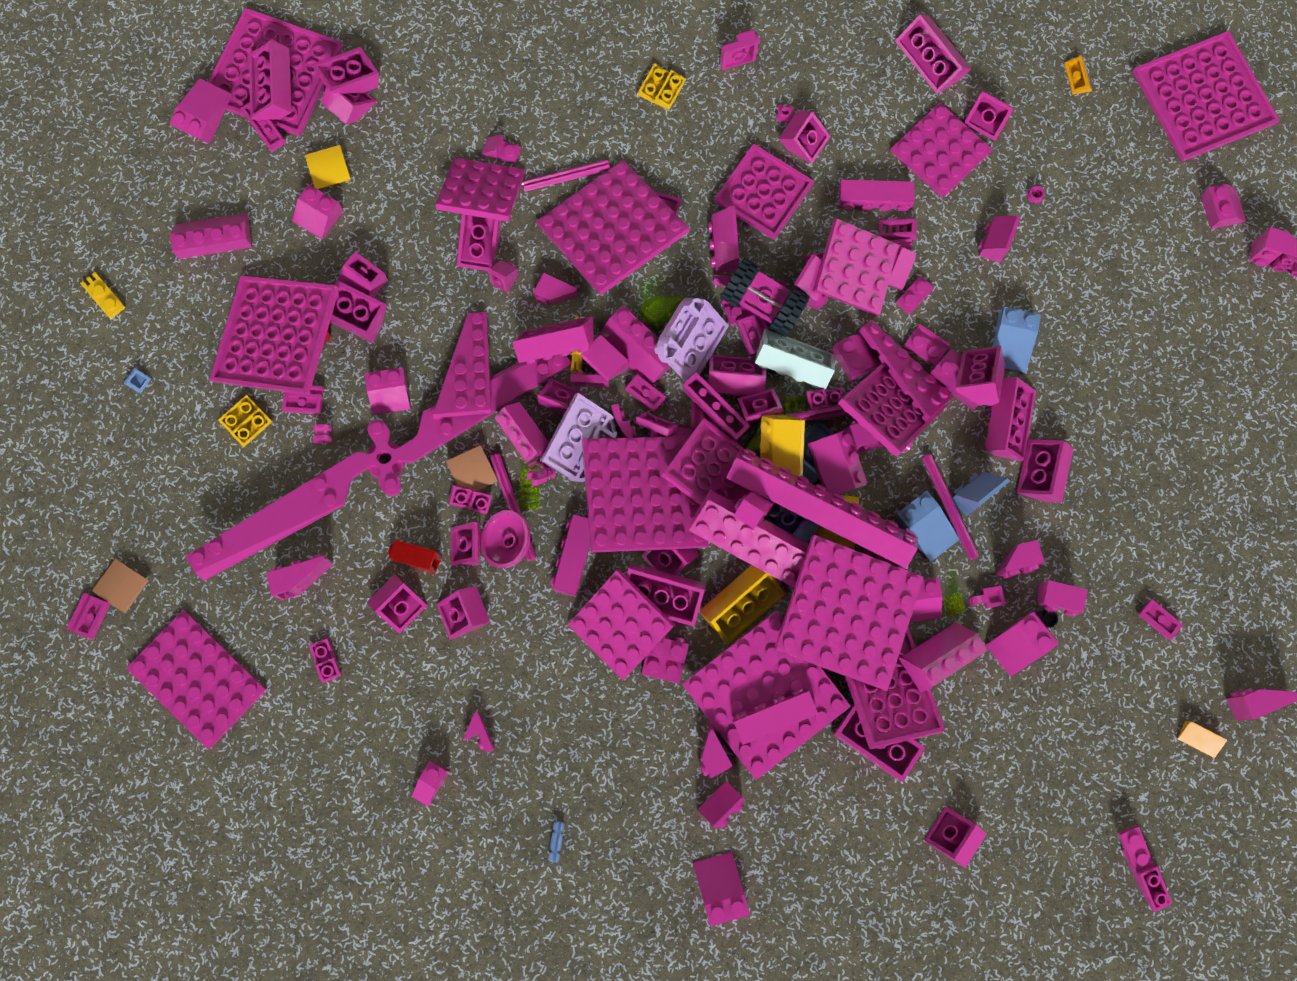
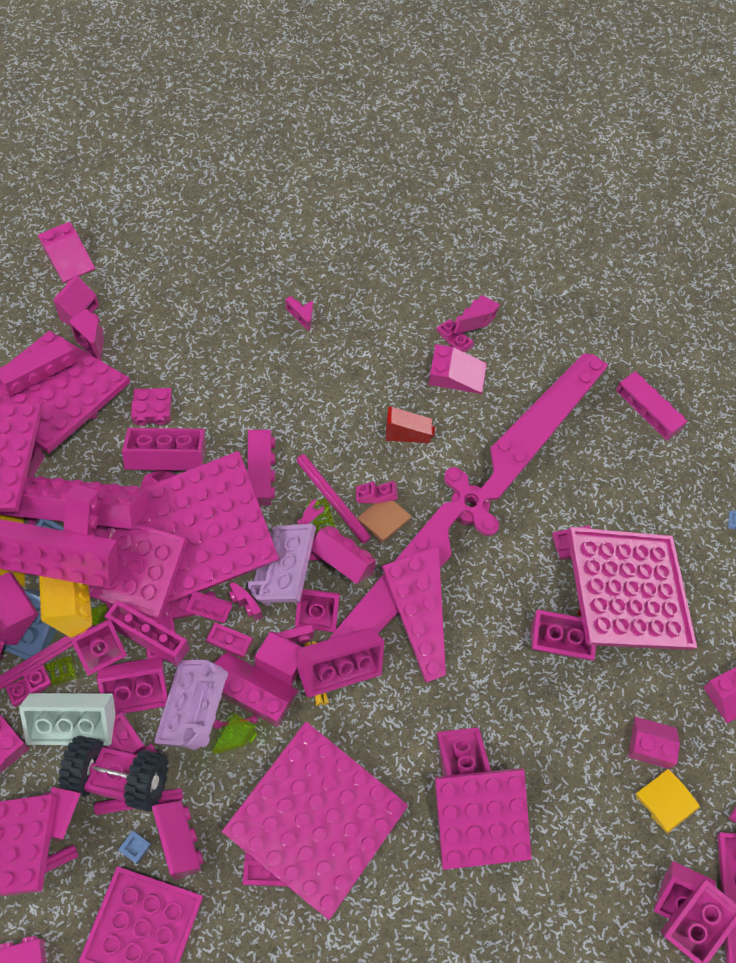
camera: 160 degrees right, 15 degrees down
(88, 616) = (667, 321): dark pink plate -> none
(120, 585) = (655, 349): nougat slope -> none
(158, 519) = (651, 405): none -> dark pink brick
(196, 679) = (555, 300): dark pink plate -> none
(245, 421) = (619, 509): yellow slope -> none
(285, 677) = (477, 316): none -> dark pink slope
(295, 579) = (510, 381): dark pink slope -> none
(322, 433) = (541, 514): dark pink wheel -> none
(340, 615) = (456, 370): none -> slope
(362, 275) = (571, 678): dark pink slope -> none
(388, 391) = (496, 572): dark pink slope -> none
(396, 603) = (411, 389): dark pink slope -> none
(429, 783) = (329, 273): dark pink slope -> none
(463, 612) = (347, 397): dark pink slope -> none
(466, 544) = (364, 452): dark pink slope -> none
(498, 537) = (329, 461): dark pink dish -> none
(501, 150) = (480, 888): dark pink slope -> none
(503, 275) = (421, 723): dark pink slope -> none
(553, 291) = (361, 724): dark pink slope -> none
(556, 841) = (213, 257): medium blue axle -> none
(565, 175) = (391, 878): dark pink axle -> none
(621, 624) = (197, 415): dark pink plate -> none
(742, 603) = (93, 458): yellow slope -> none
(759, 249) = (134, 847): none -> medium blue plate

